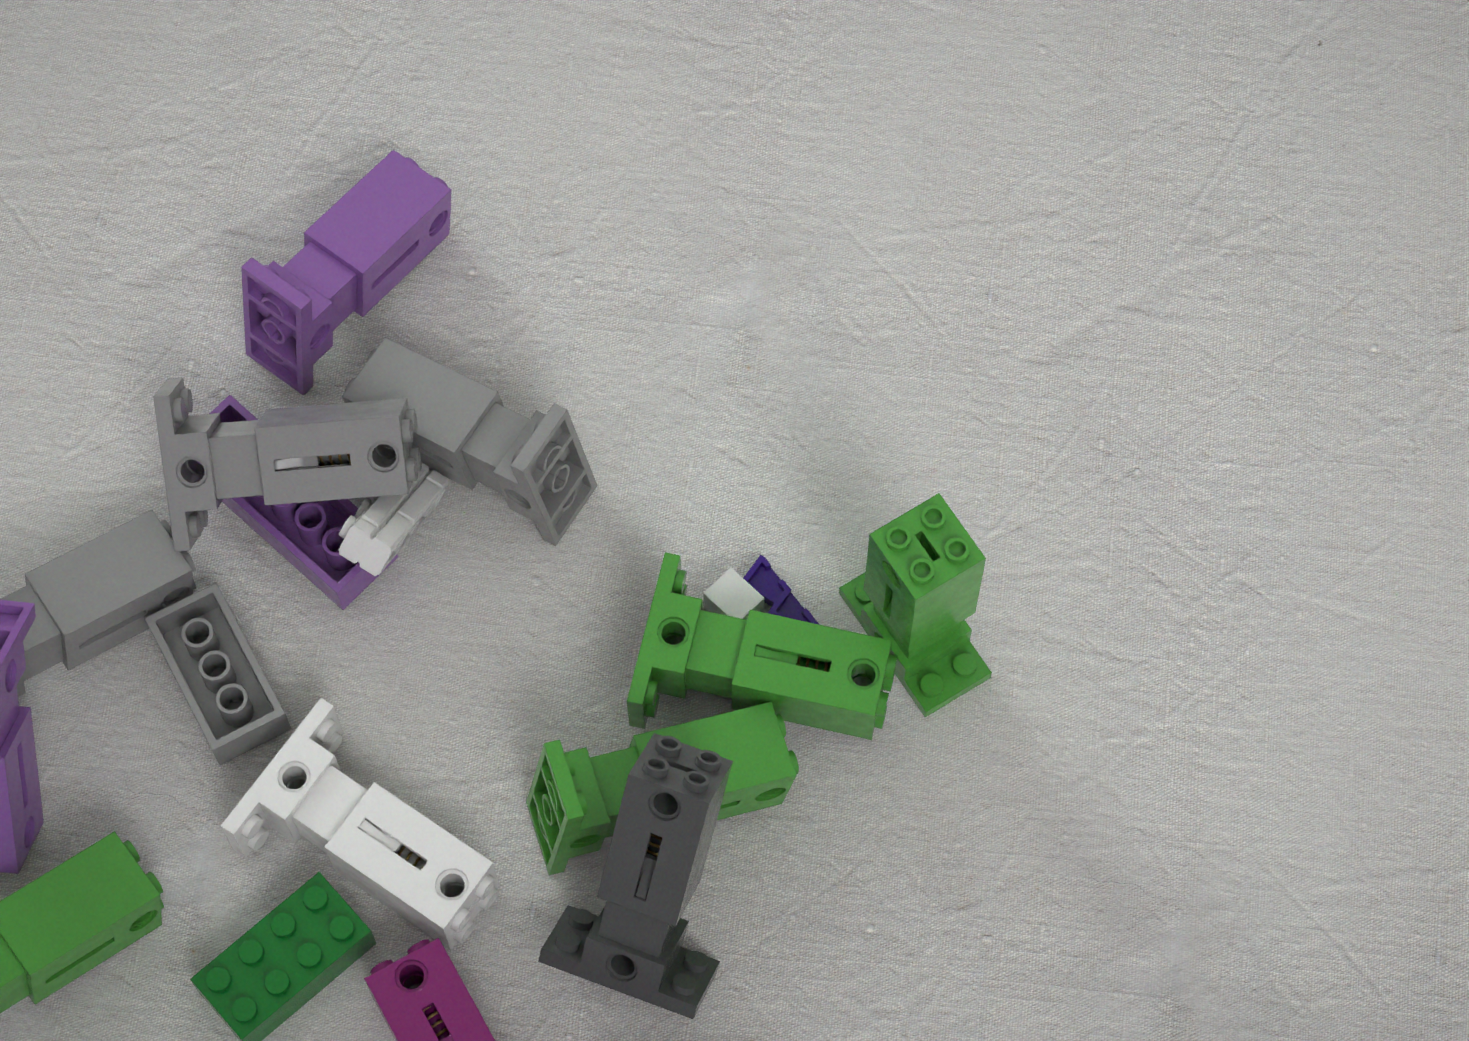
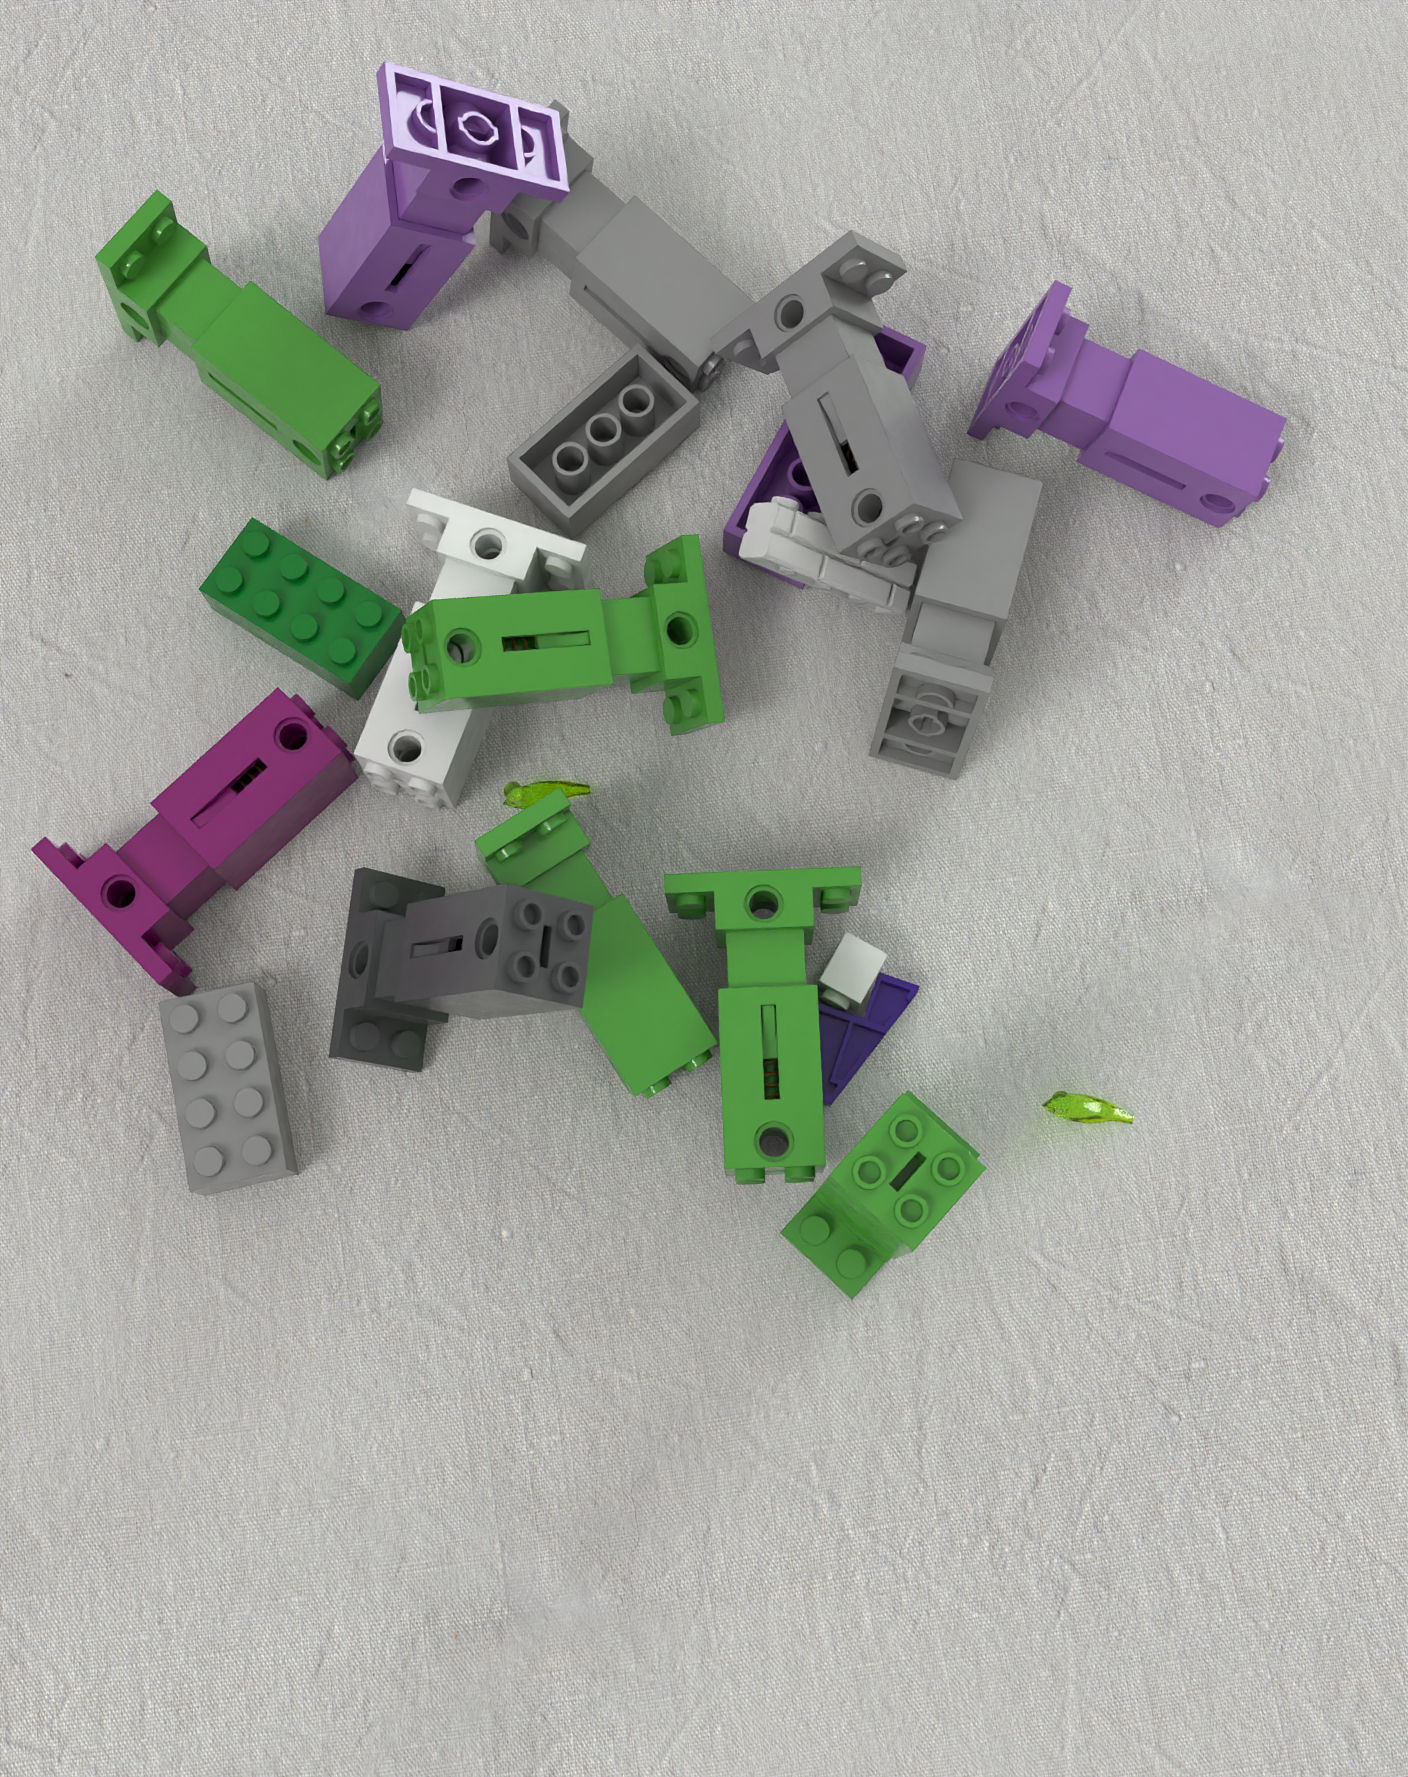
camera: 75 degrees right, 10 degrees up
(411, 718) = (574, 645): none -> bright green brick
(510, 806) = (526, 795): none -> clear neon green bar
(889, 465) = (1085, 1109): none -> clear neon green bar

